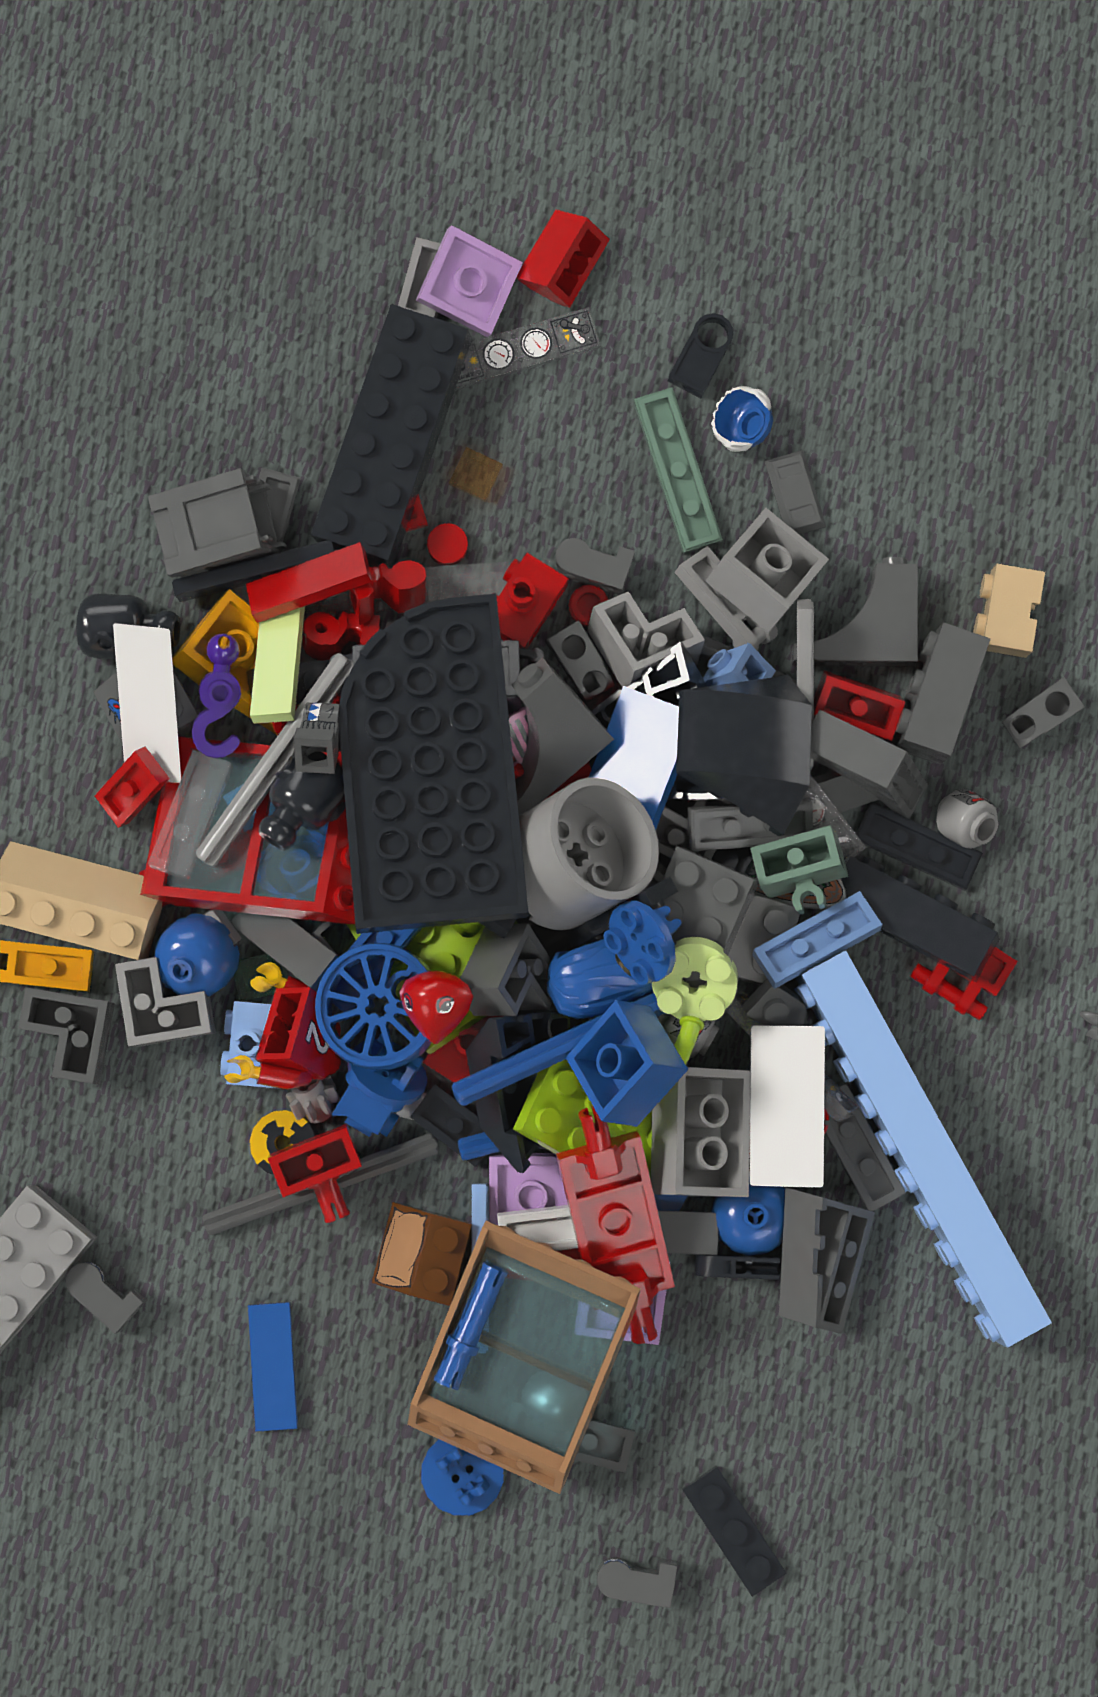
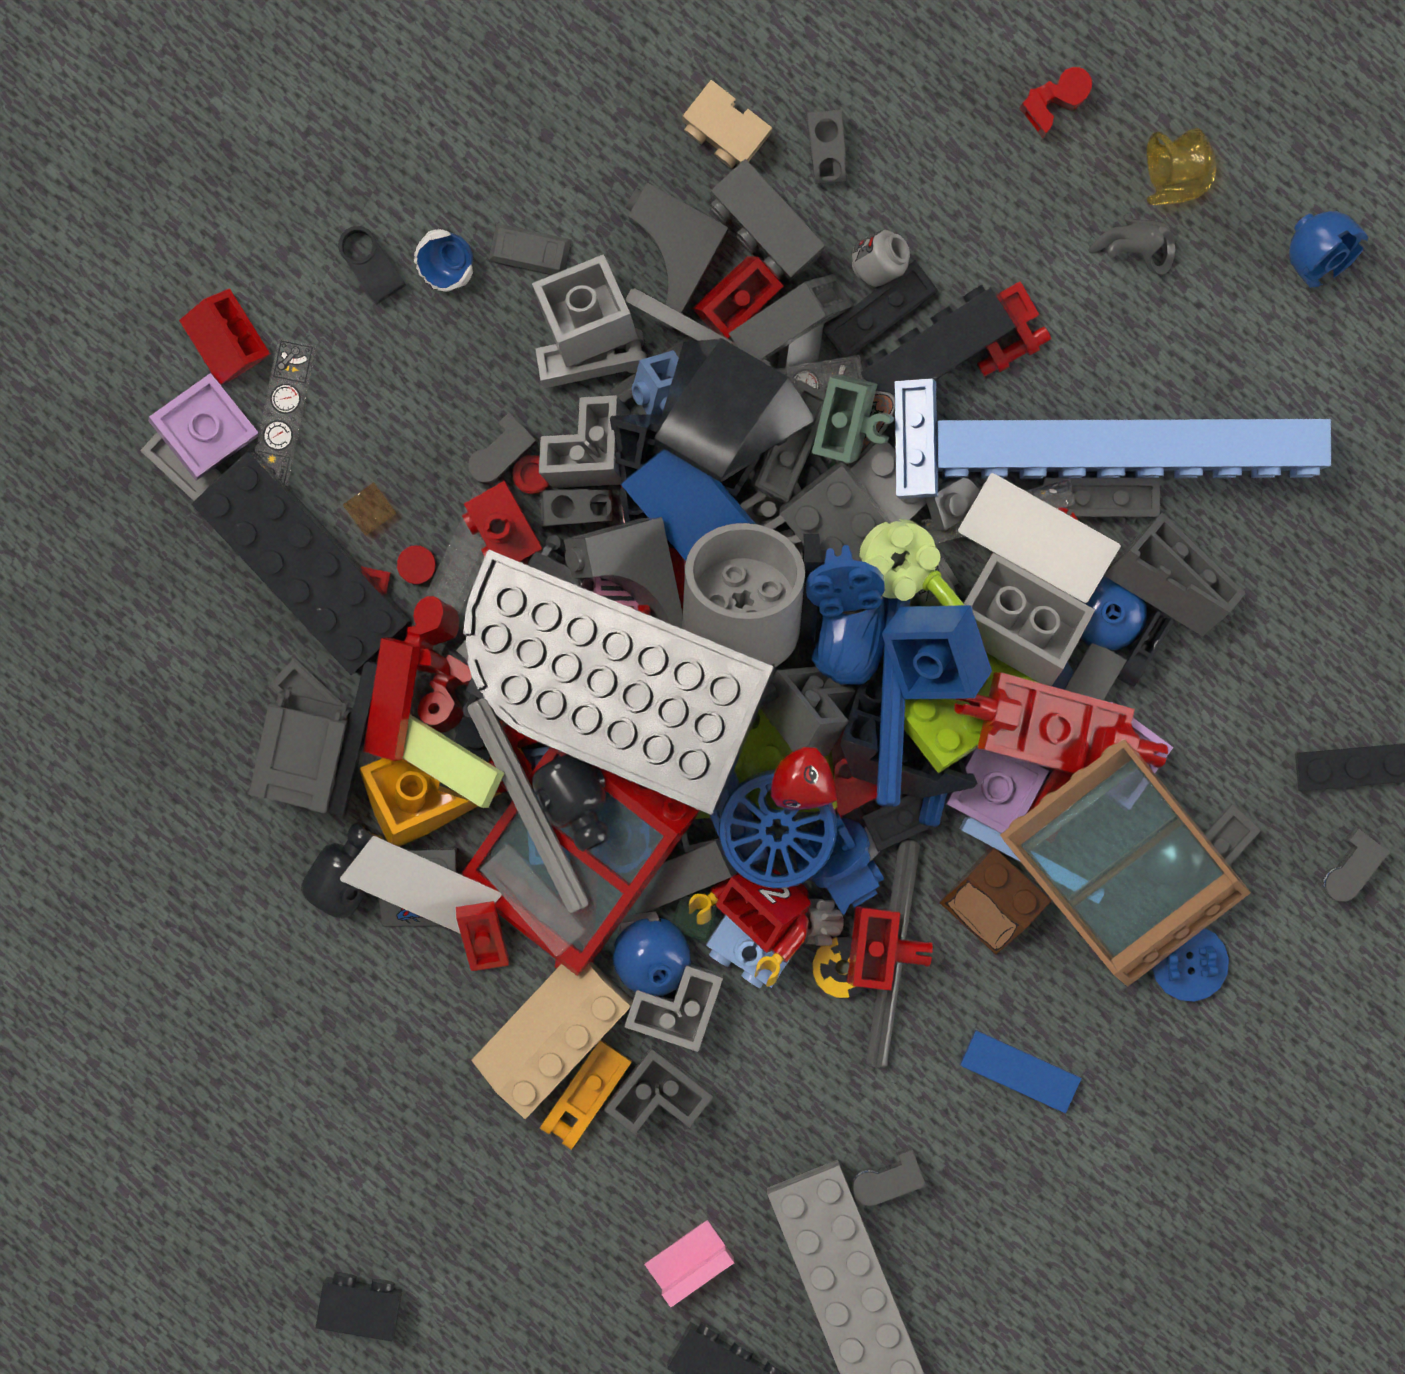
camera: 60 degrees left, 5 degrees up
(220, 694) = (447, 823): dark purple piece -> none
(318, 734) = (529, 758): dark grey leg -> none
(464, 1341) = (1078, 893): blue pin -> none
(542, 1225) = (1026, 791): white tile -> none
(677, 470) = (457, 338): sand green tile -> none

